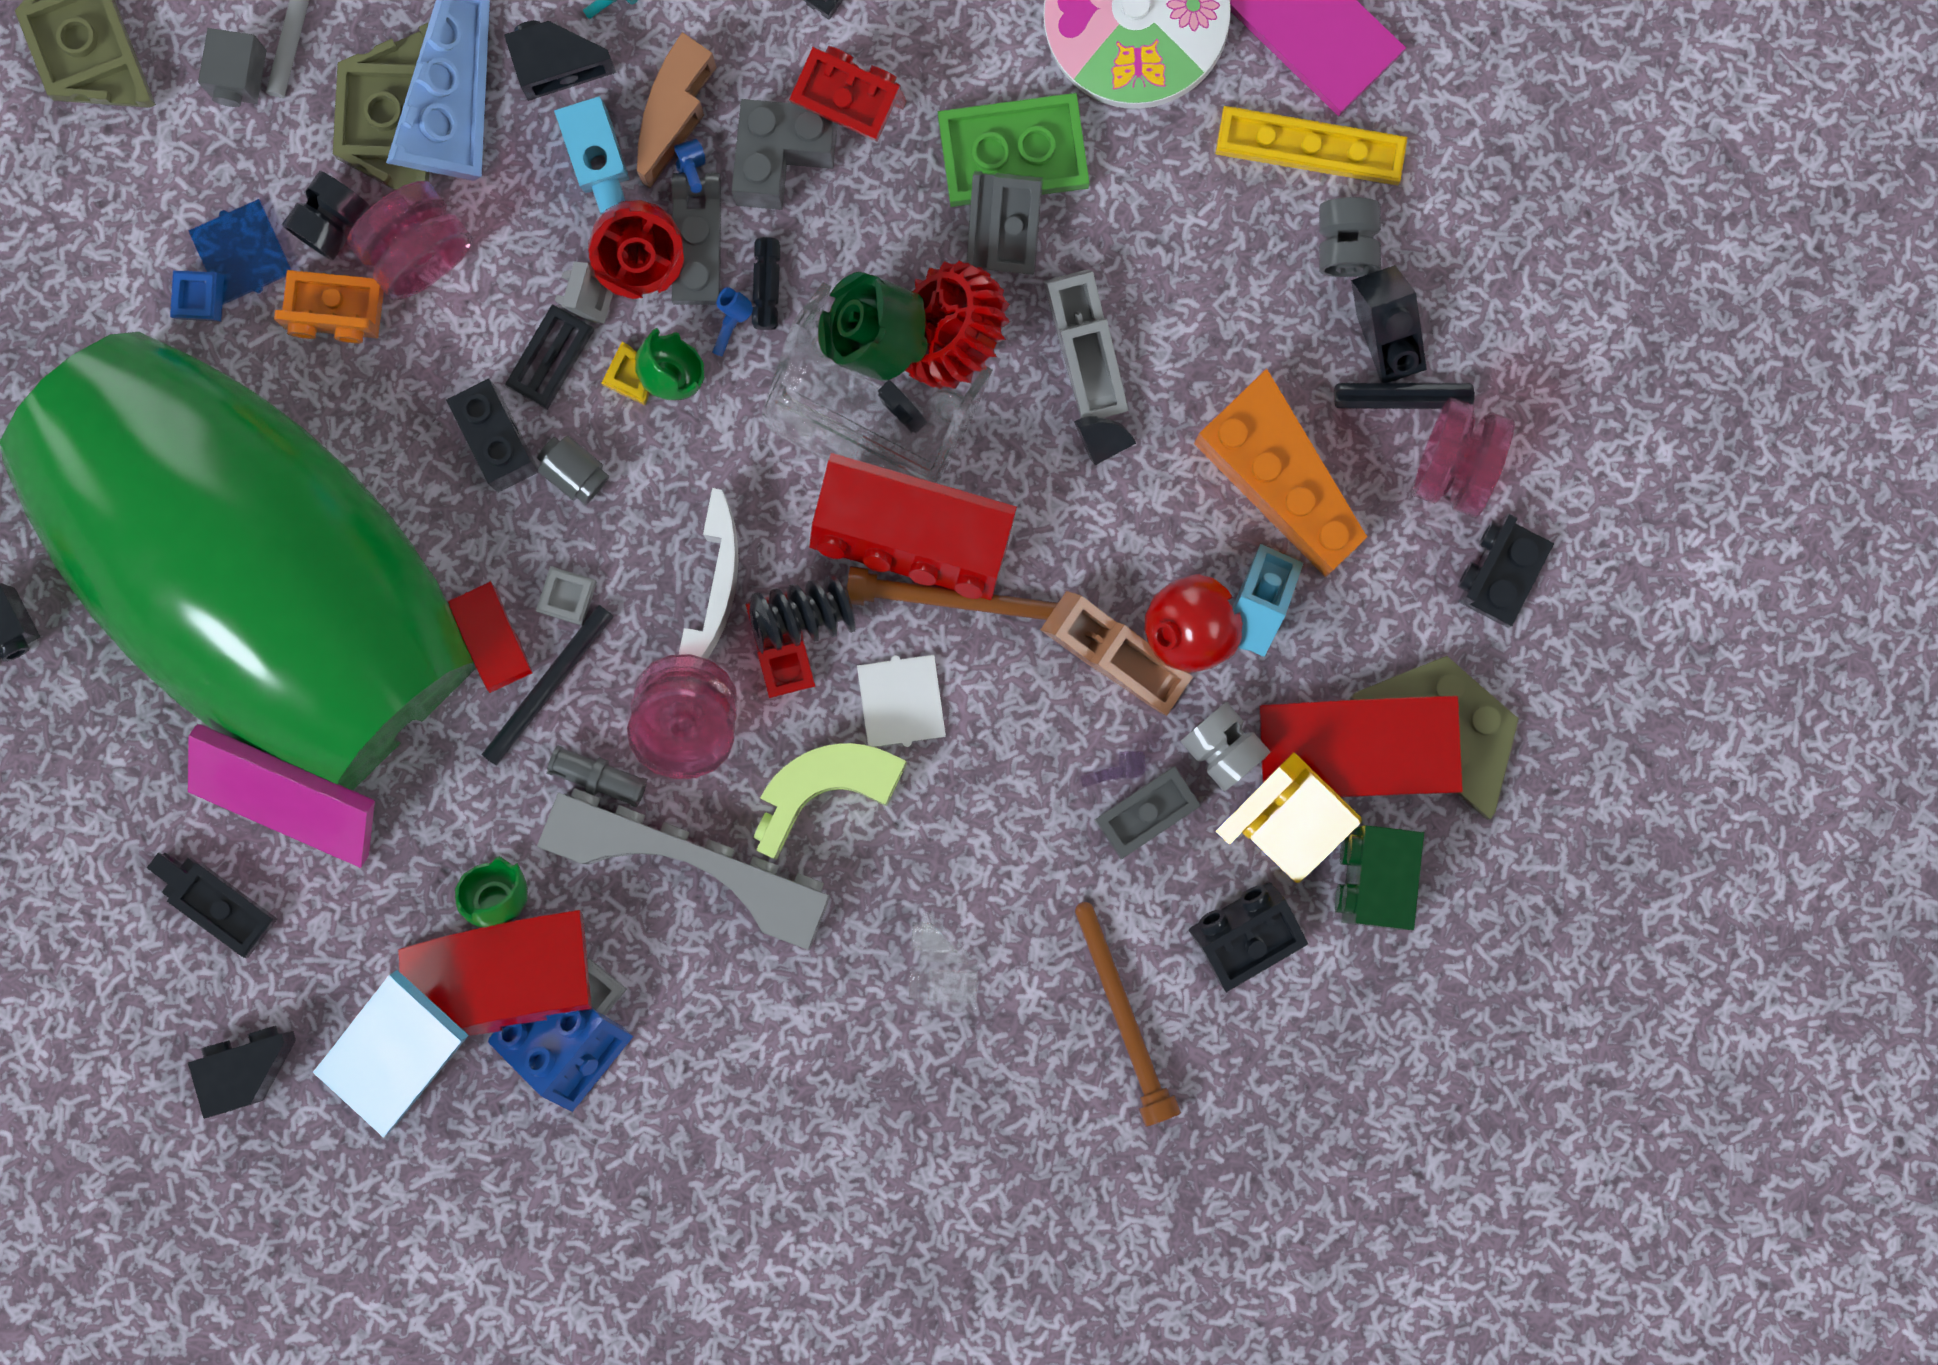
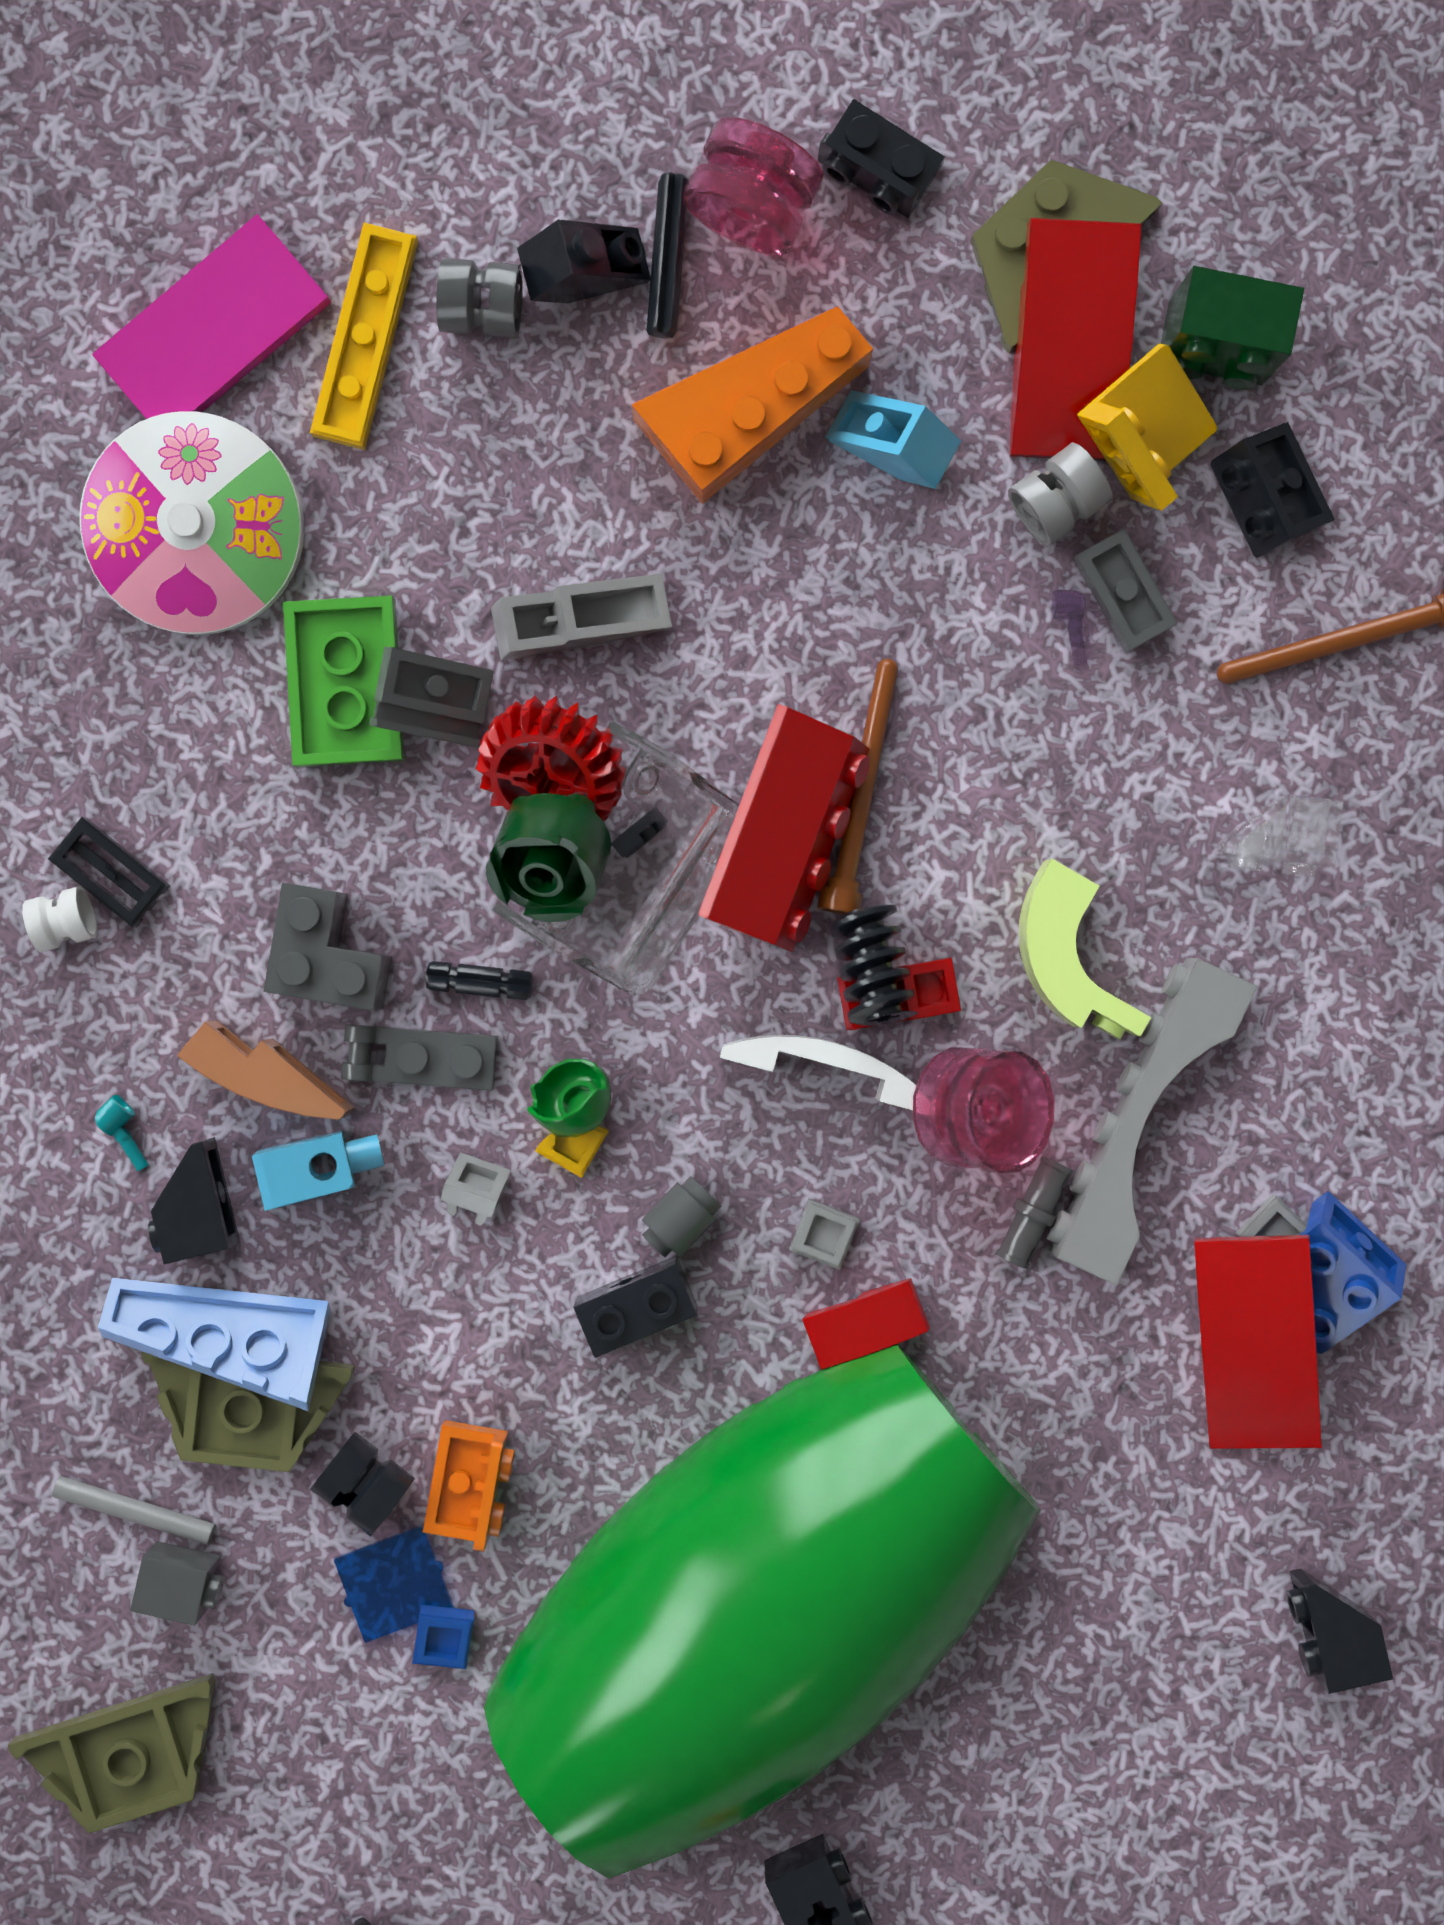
camera: 85 degrees left, 5 degrees up
(213, 903) = (1143, 1655): black hinge -> none
(279, 795) = (1033, 1574): dark pink tile -> none
(390, 1053) = (1334, 1463): tile -> none
(409, 240) = (401, 1389): clear pink wheel -> none
(491, 893) = (1161, 1340): green hair -> none
(547, 685) = (924, 1261): black bar -> none
(566, 364) = (507, 1208): black tile -> none
(636, 249) = (431, 1126): red cylinder -> none
(690, 157) = (323, 1057): blue hand -> none
(737, 309) = (507, 1016): blue hand -> none
(847, 94) = (268, 866): red bracket -> none
(901, 701) = (973, 861): white piece -> none
(1103, 437) = (690, 605): black tile -> none
(1115, 652) = (939, 611): nougat slope -> none
(1193, 624) = (920, 517): red cylinder -> none

